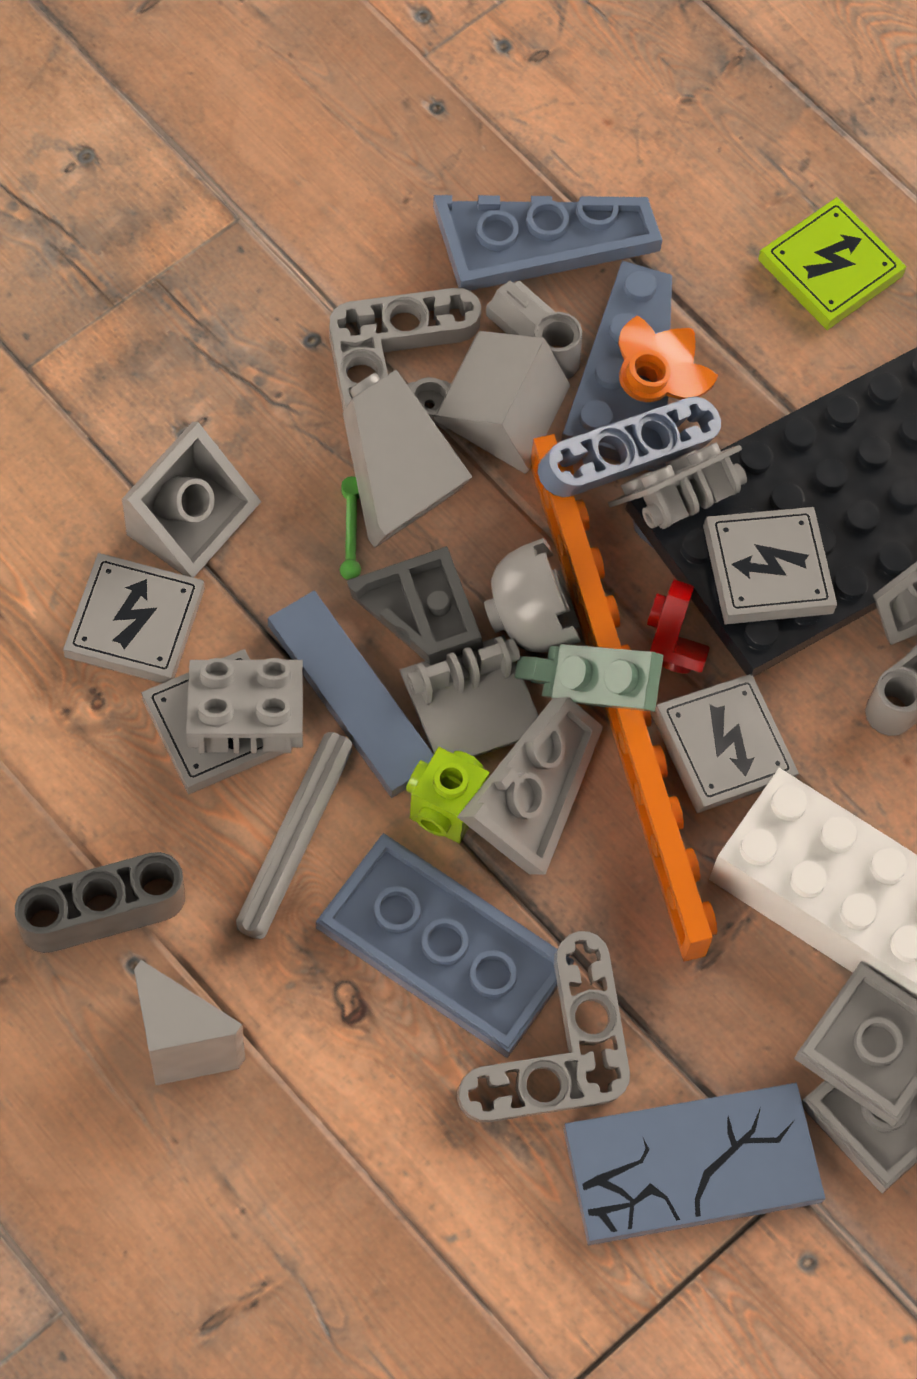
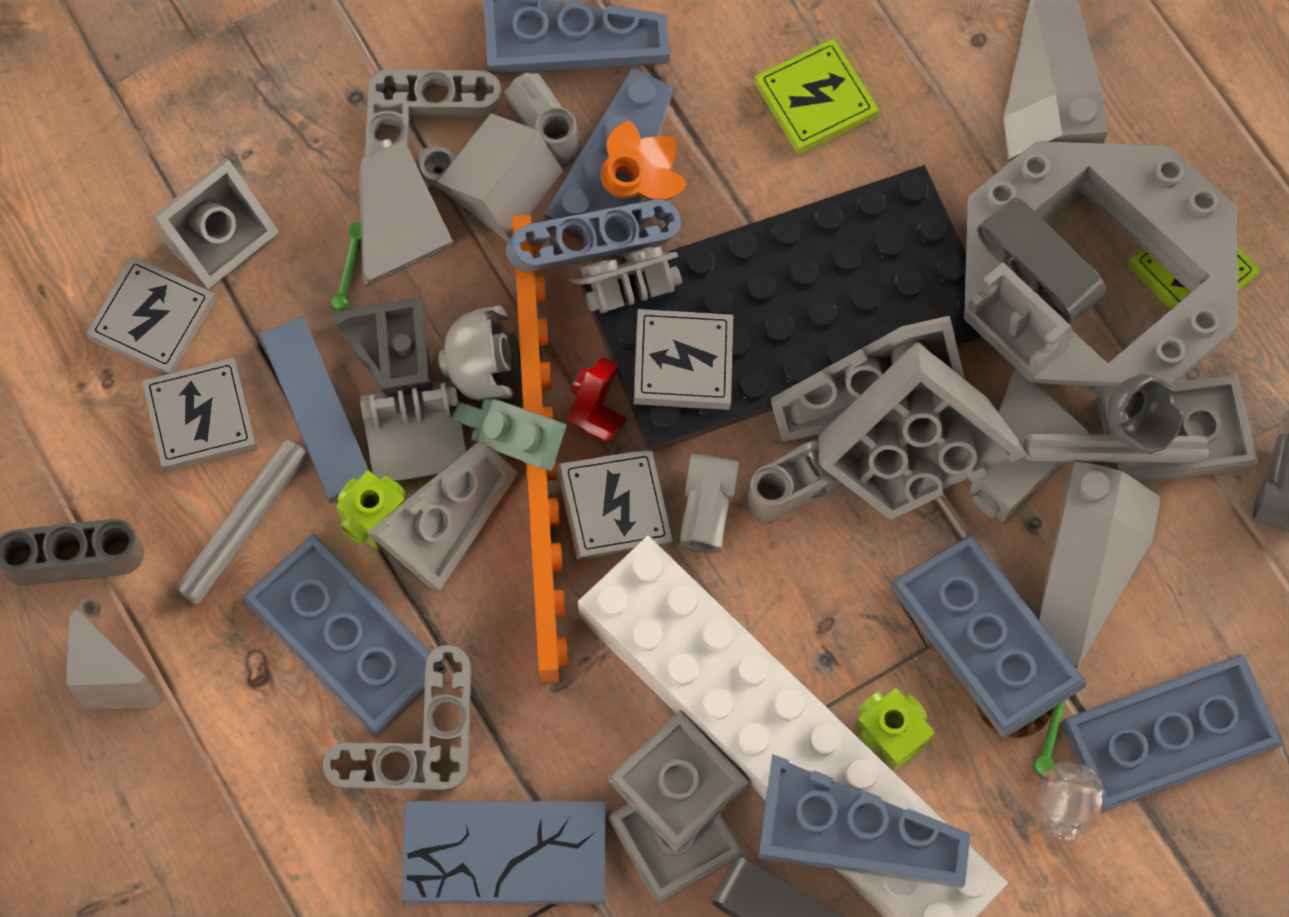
camera: 15 degrees right, 5 degrees up
(245, 702) = (220, 404): light grey hinge -> none
(828, 709) = (709, 492): none -> light grey piece

